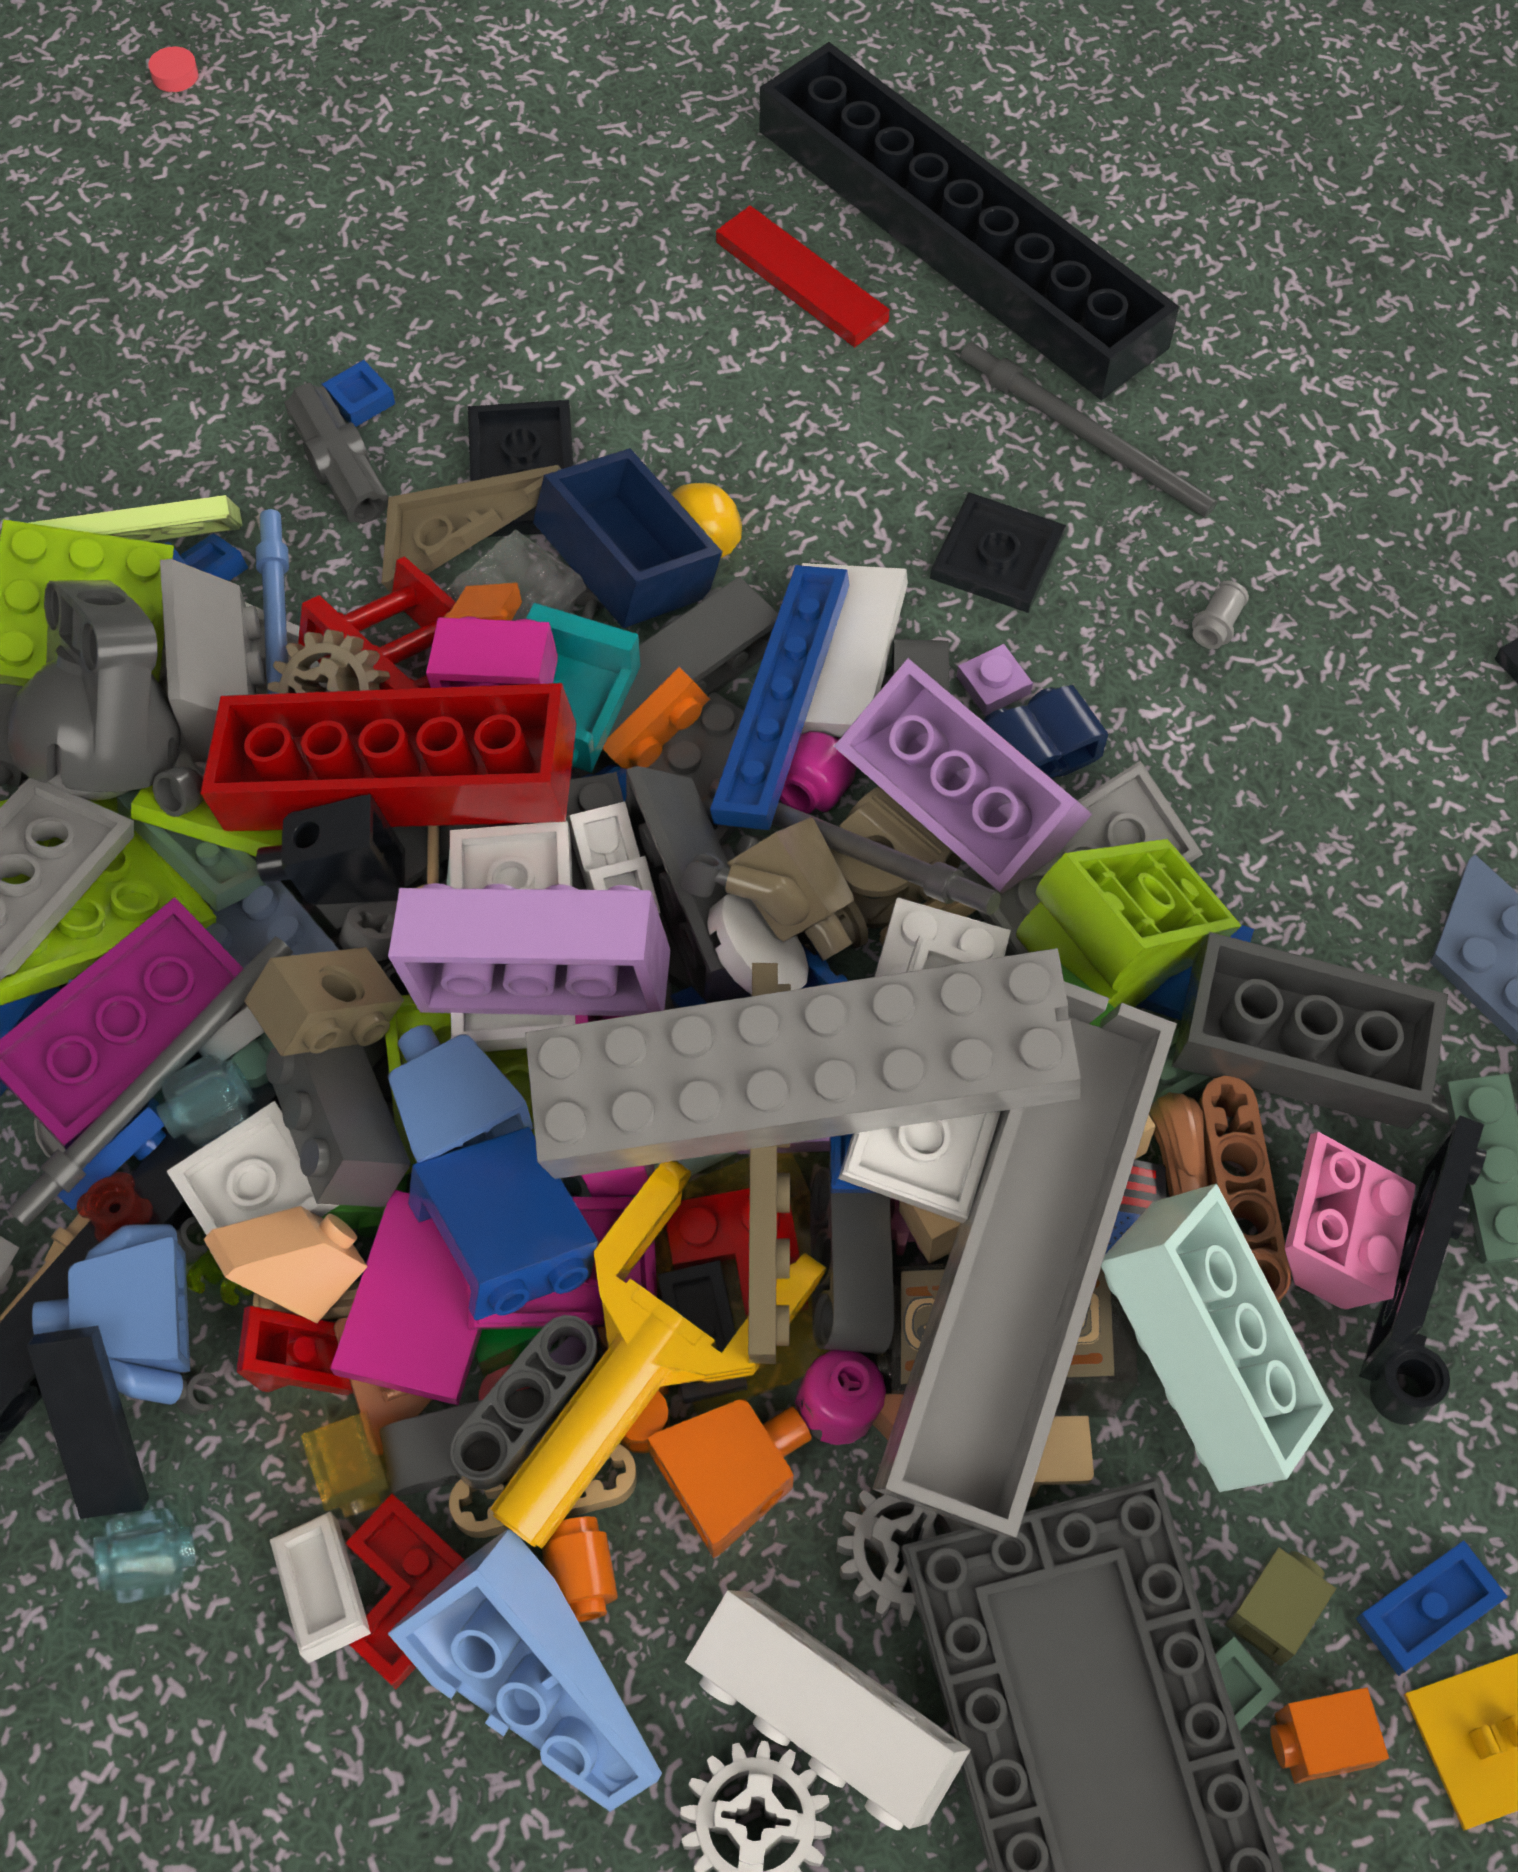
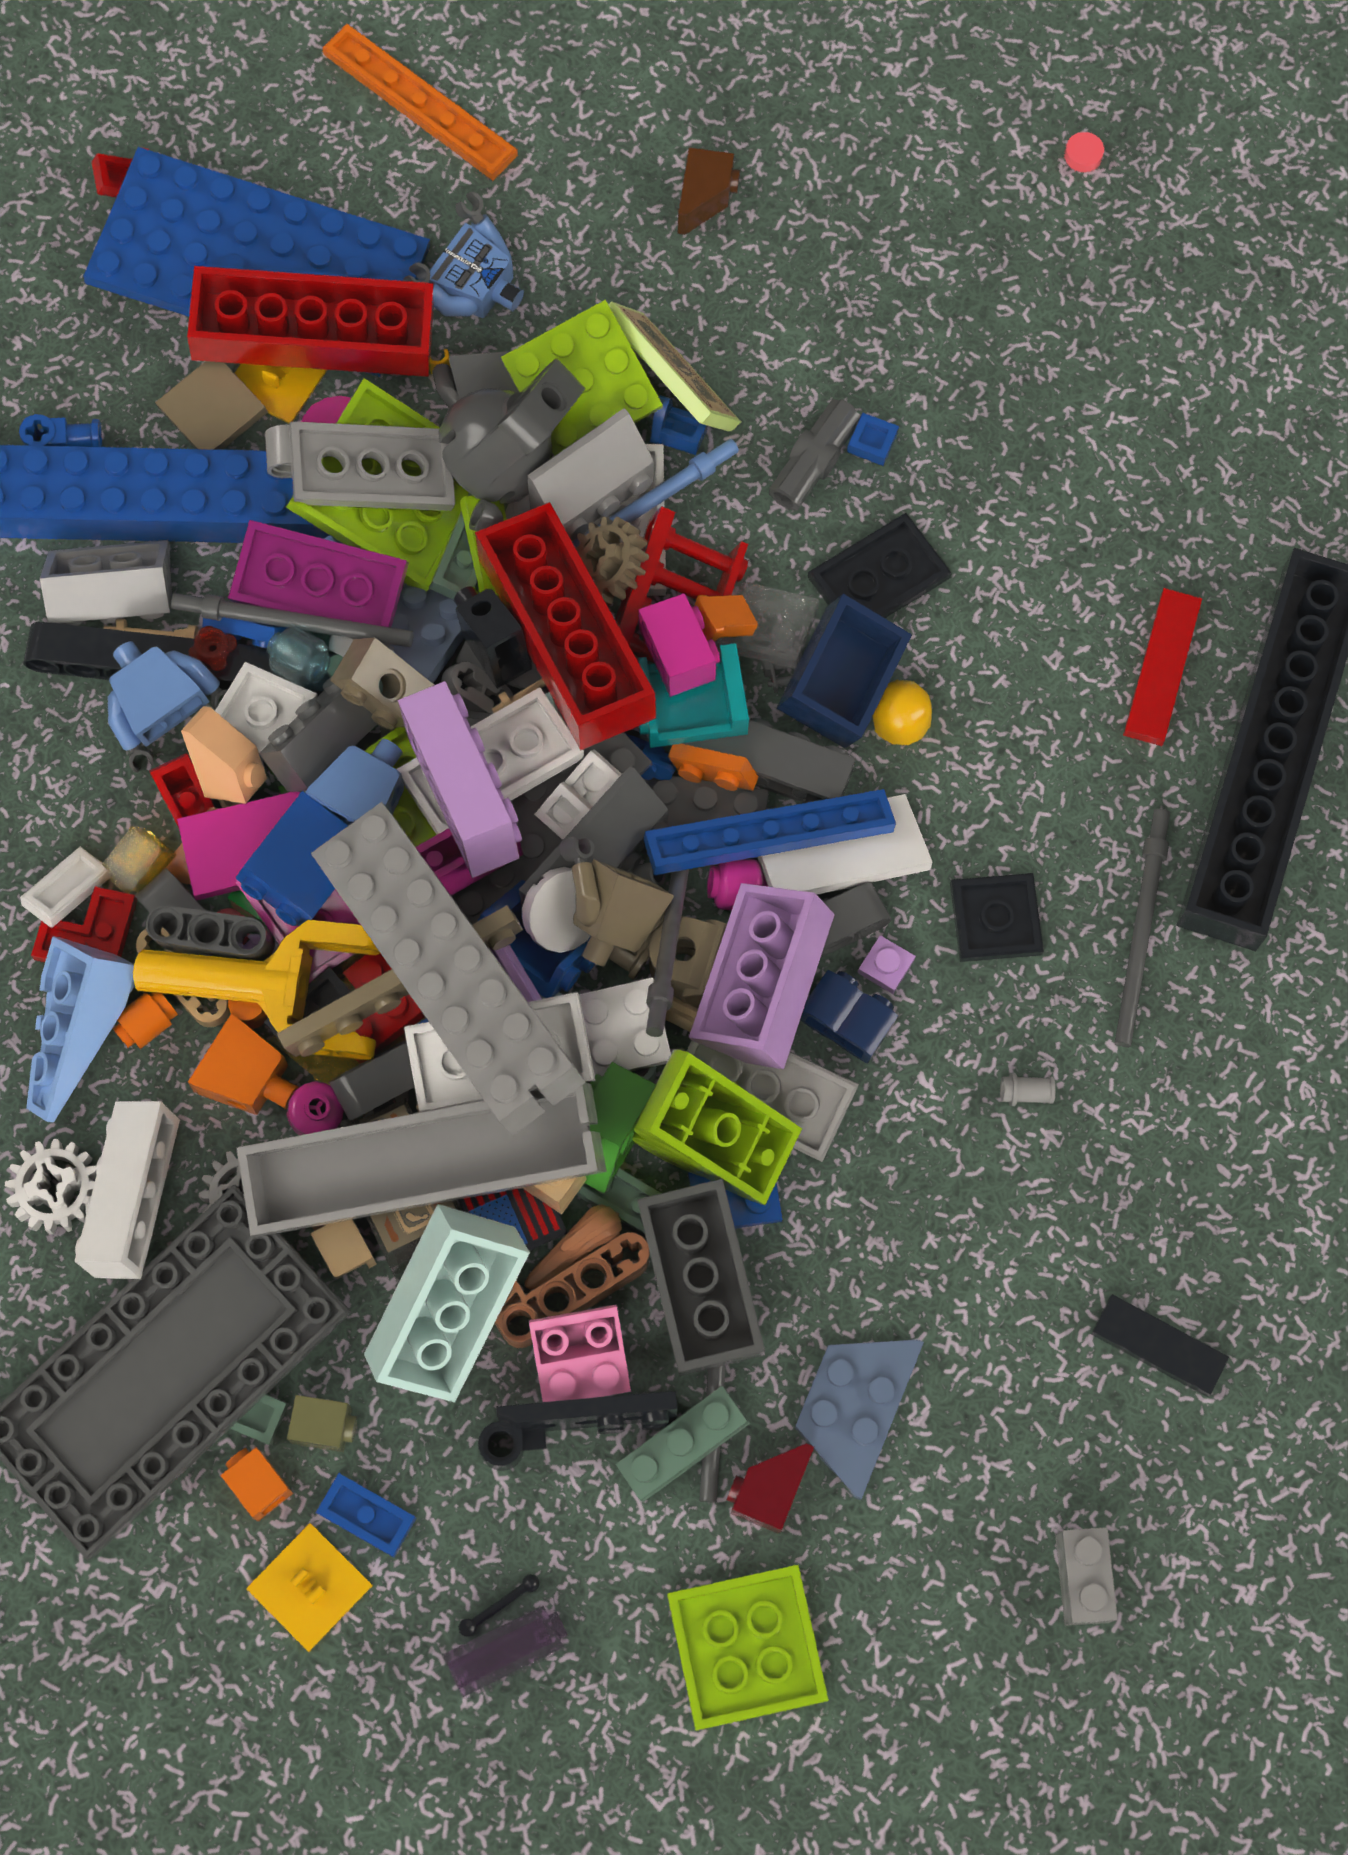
camera: 60 degrees right, 10 degrees up
(88, 1421) = (84, 711): black tile -> none
(142, 1555) = (35, 785): clear light blue head -> none
(447, 520) = (798, 554): dark tan wing -> none

